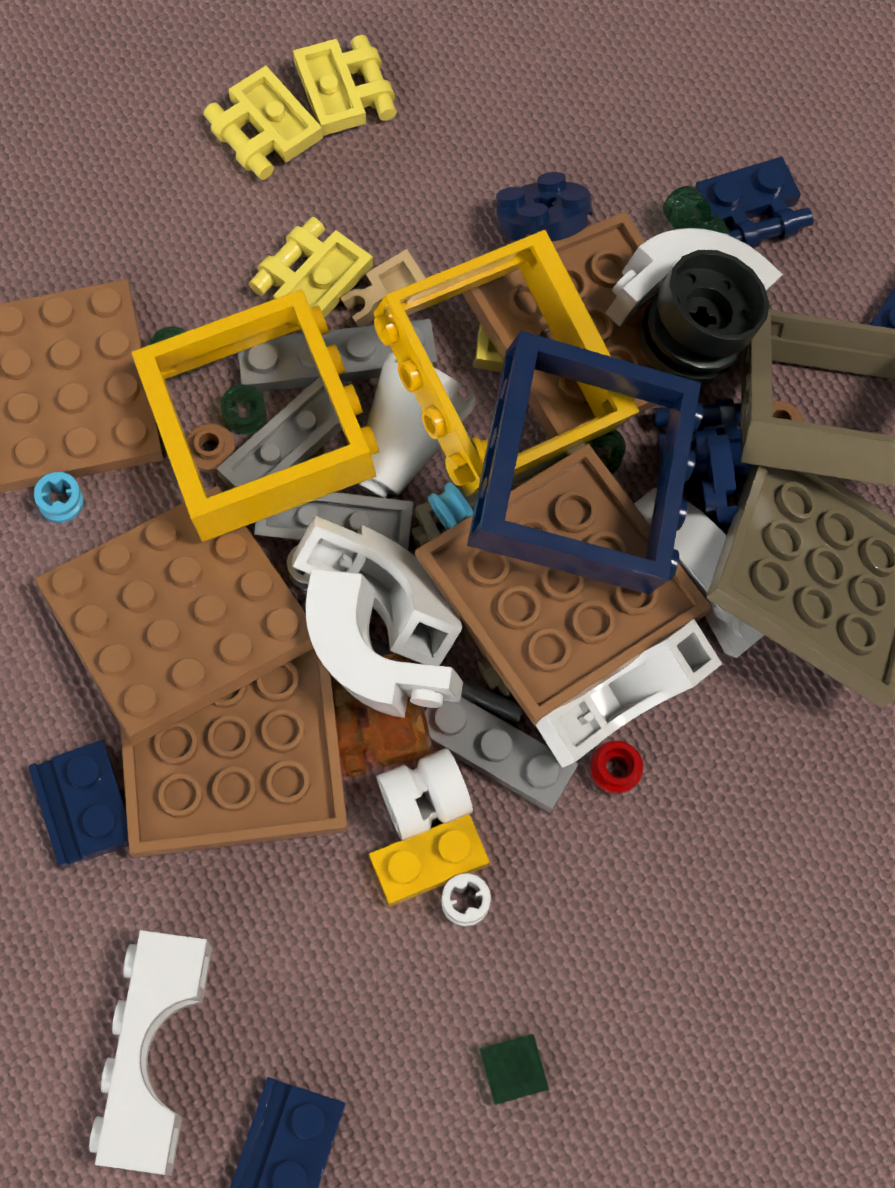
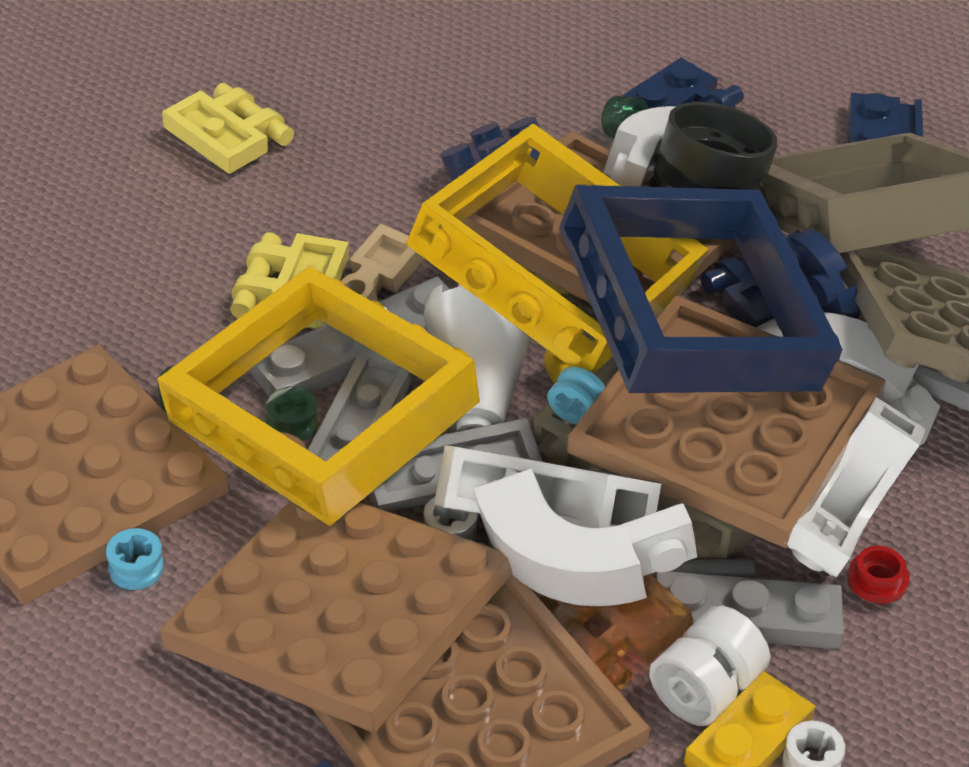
camera: 25 degrees left, 25 degrees down
(273, 112) = (167, 166): light yellow plate -> none

